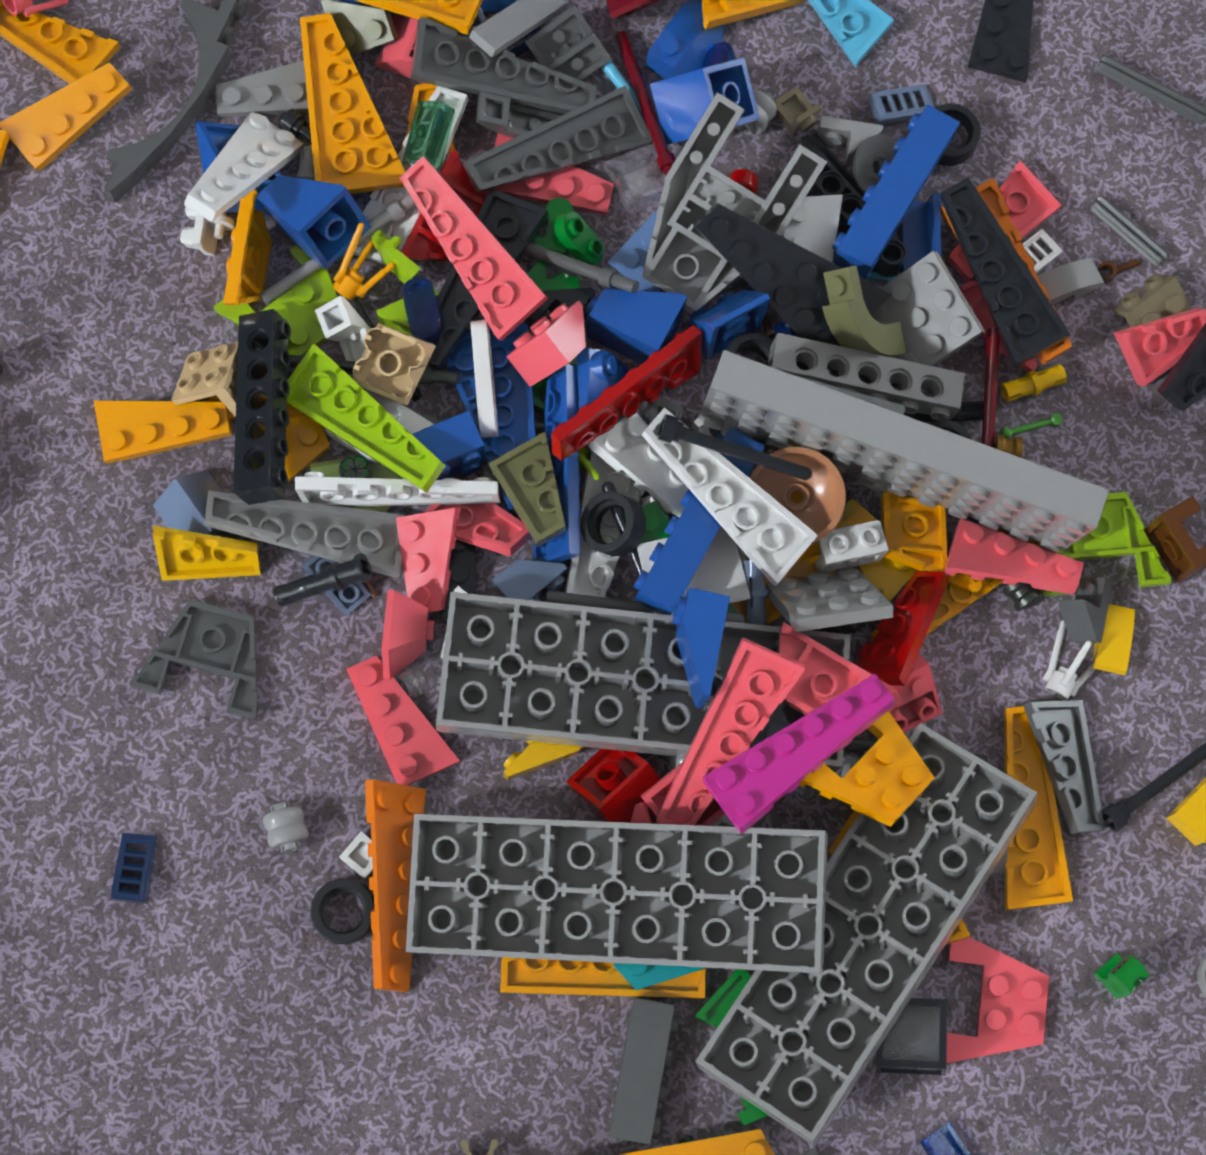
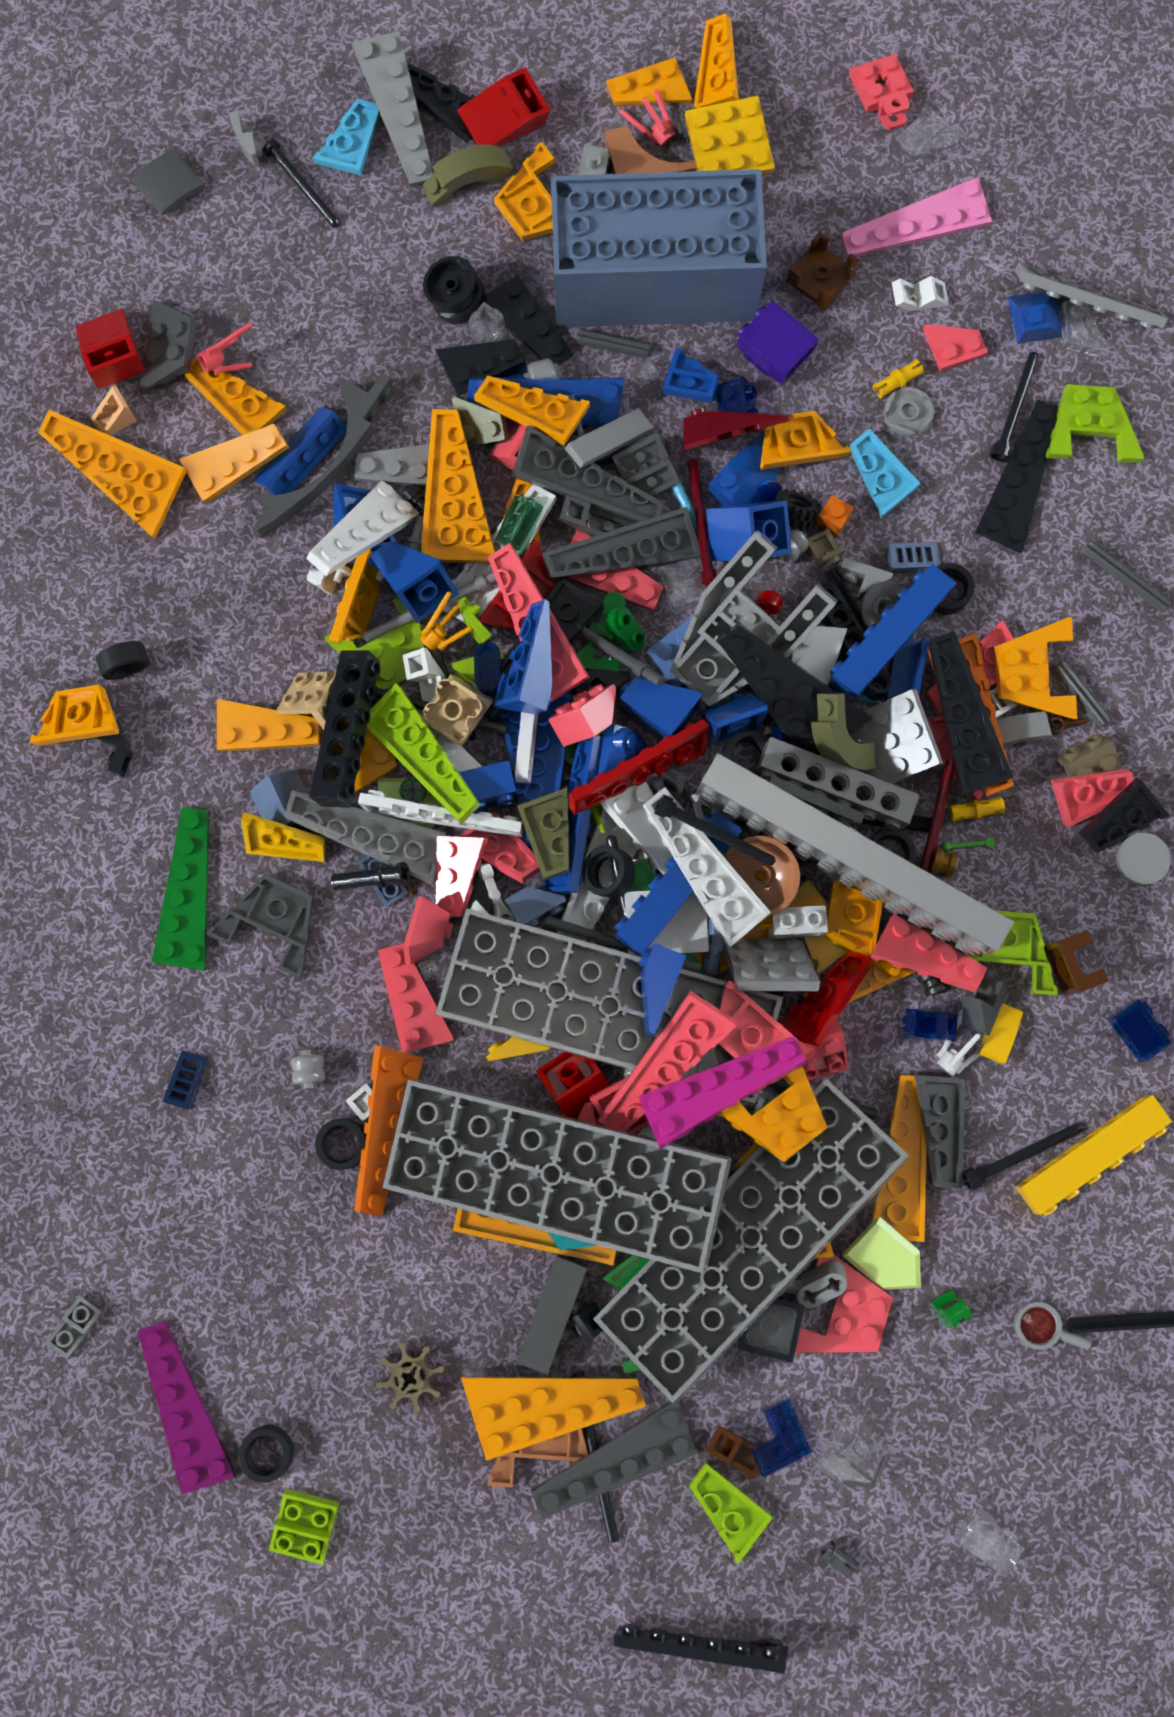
camera: 20 degrees right, 5 degrees up
(97, 667) = (184, 911): none -> green wing
(152, 92) = (305, 452): none -> blue panel
(463, 552) = (486, 874): none -> white piece
(477, 304) = (530, 676): none -> blue wedge
(686, 1073) = (585, 1324): none -> black tile
(763, 69) = (801, 509): none -> black tyre
(801, 70) = (834, 515): none -> orange brick
(959, 972) = (819, 1284): none -> light grey beam
(1029, 643) = (930, 1025): none -> clear blue brick
(1031, 928) = (885, 1257): none -> yellowish green tile
(1058, 216) = (1024, 670): none -> light orange wing

